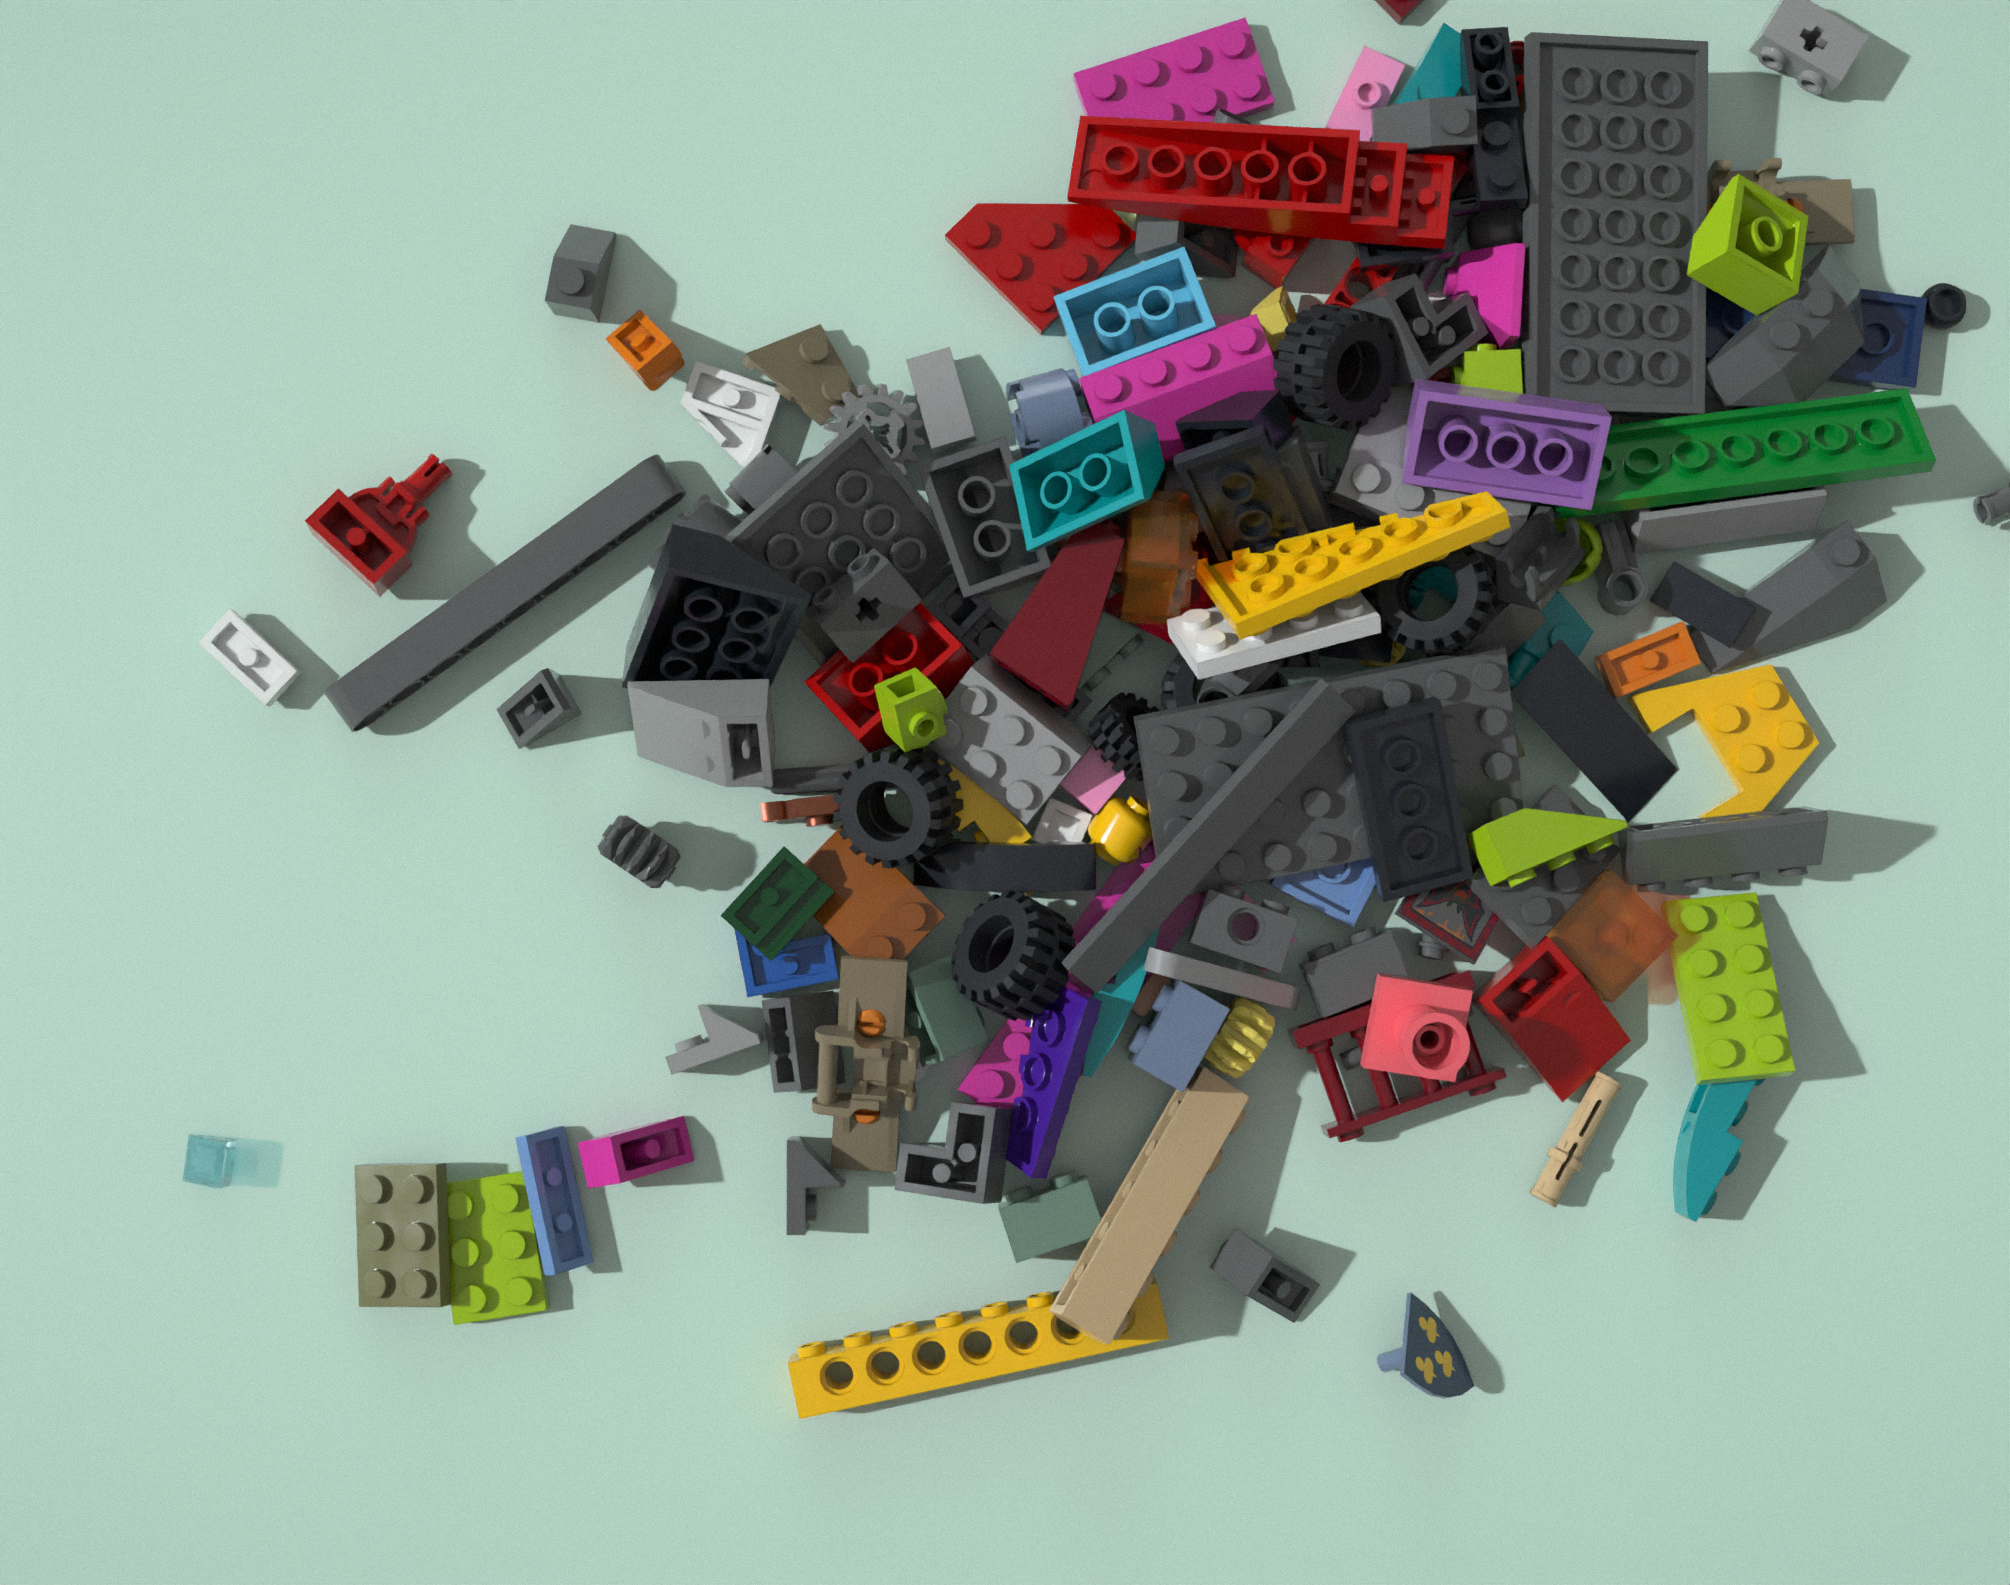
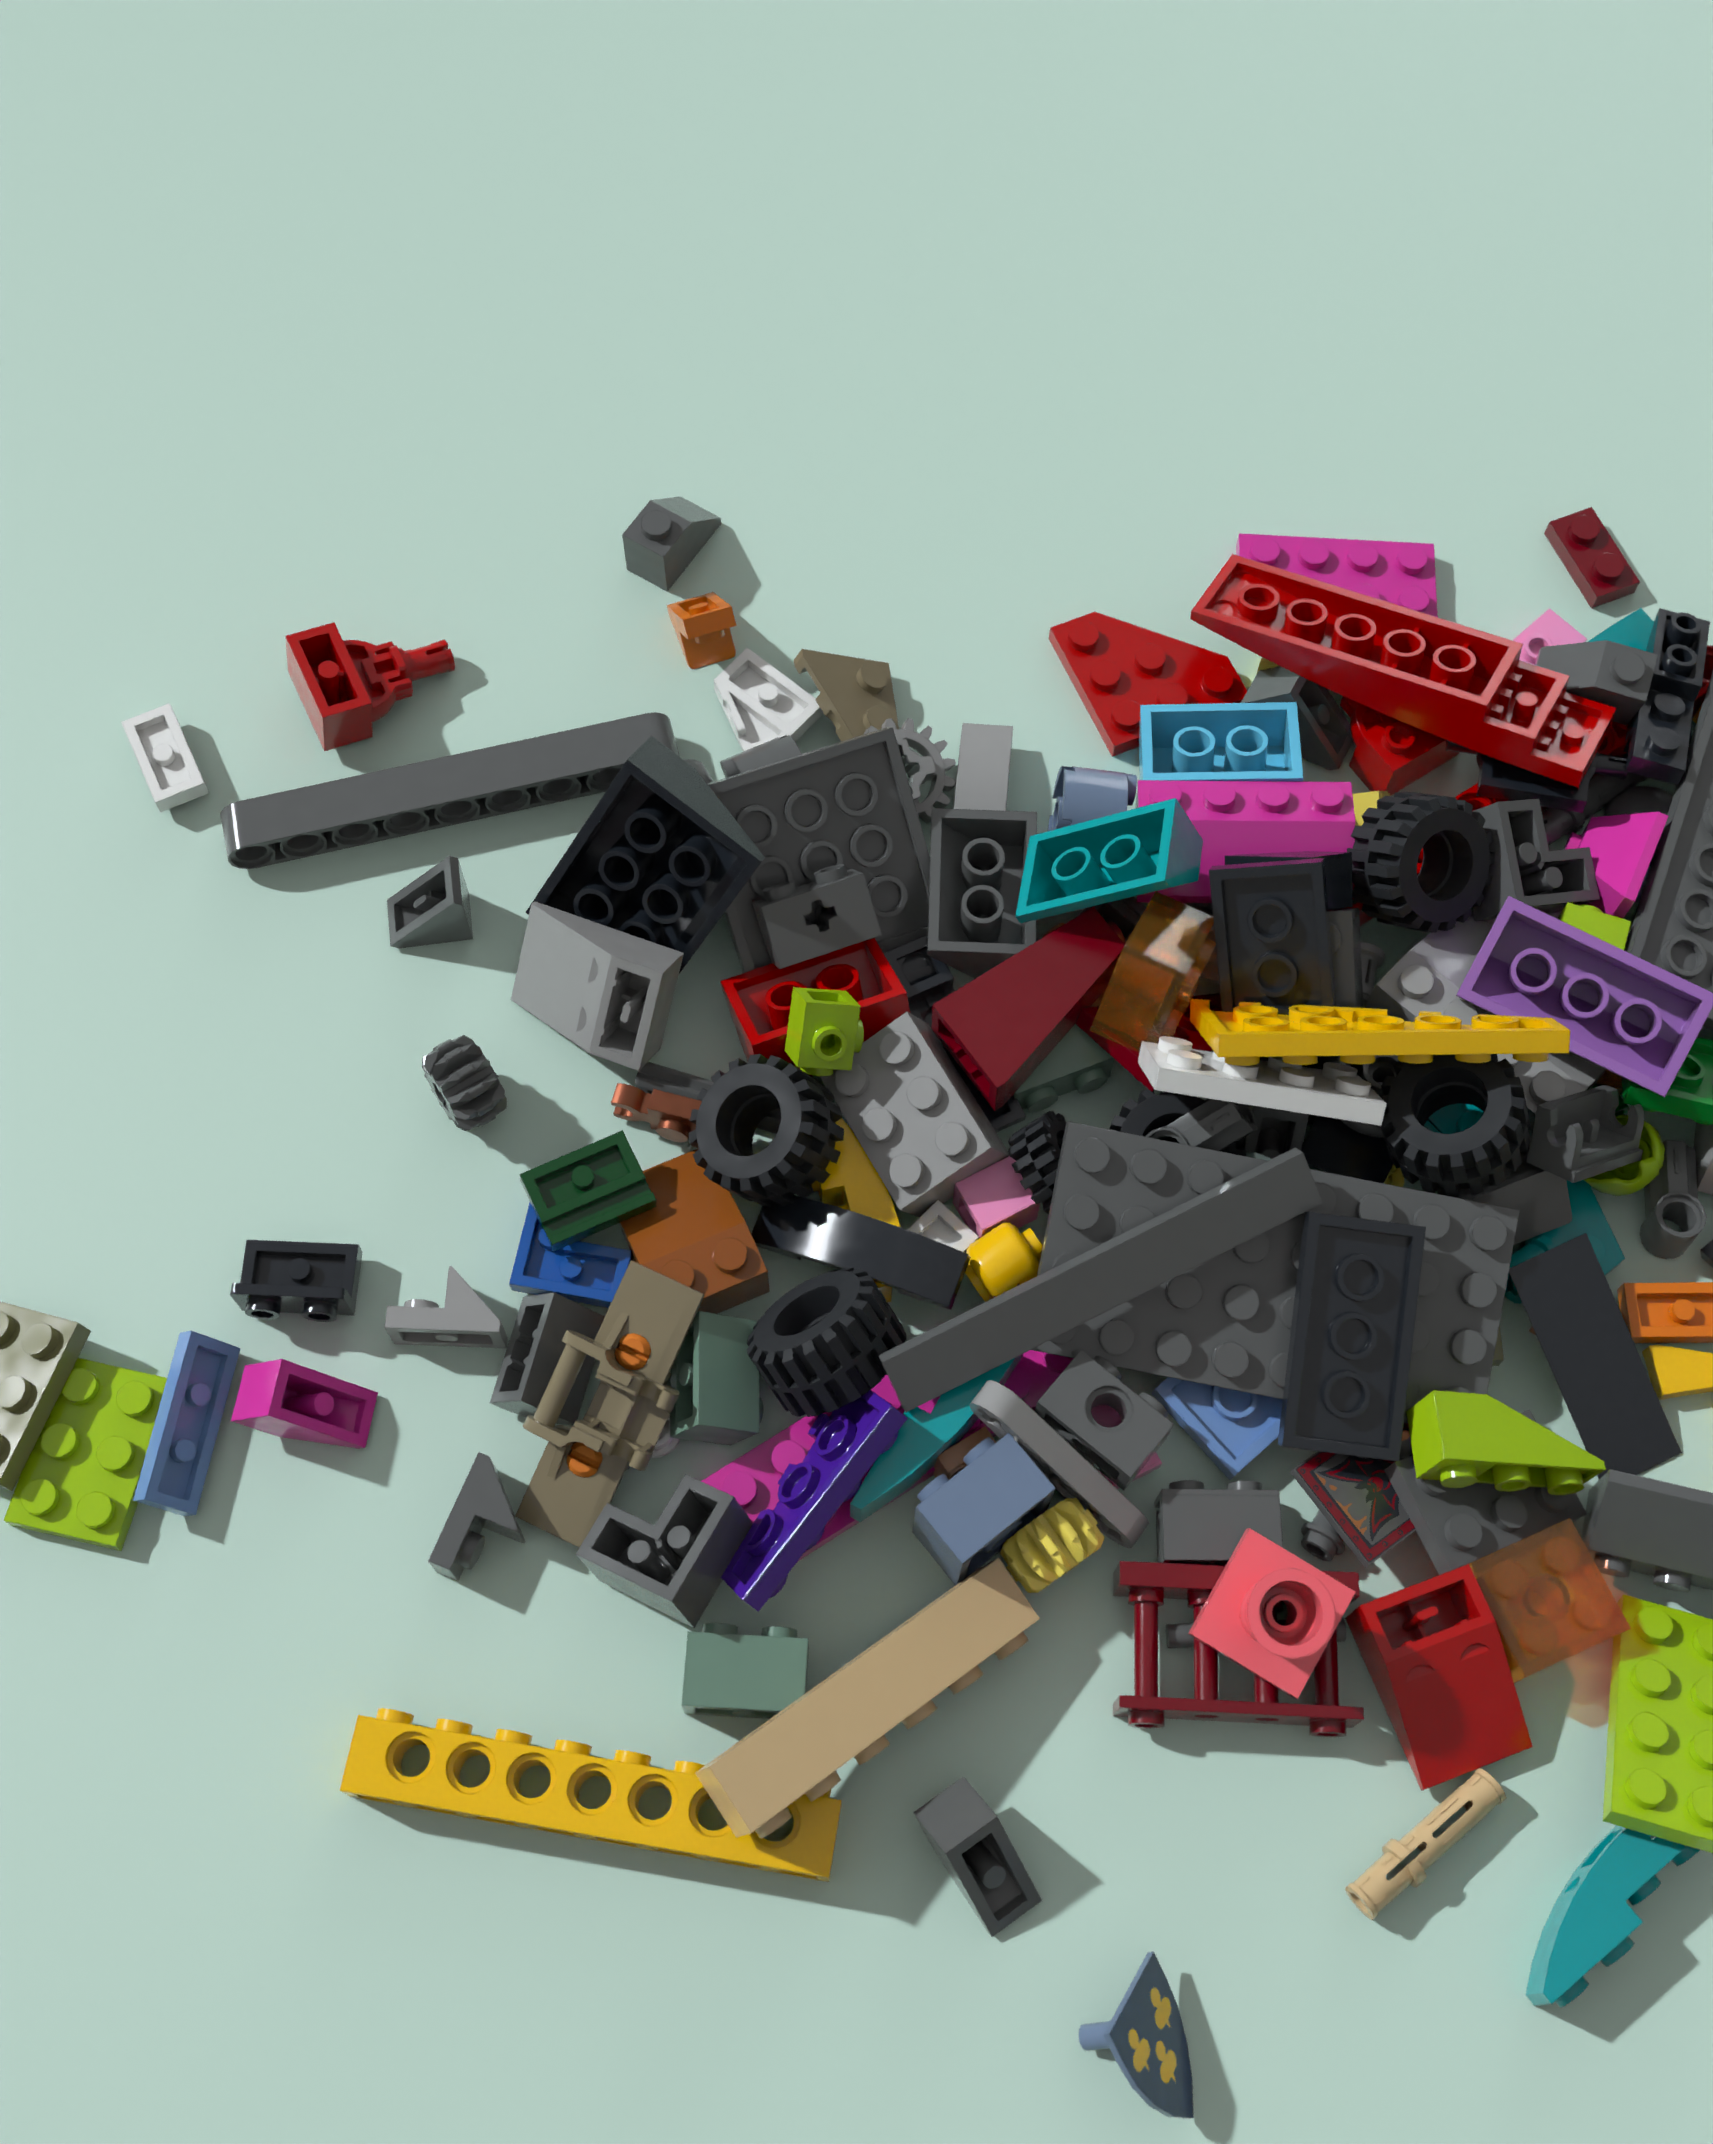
camera: 25 degrees right, 20 degrees down
(583, 1055) = (298, 1279): none -> black bracket

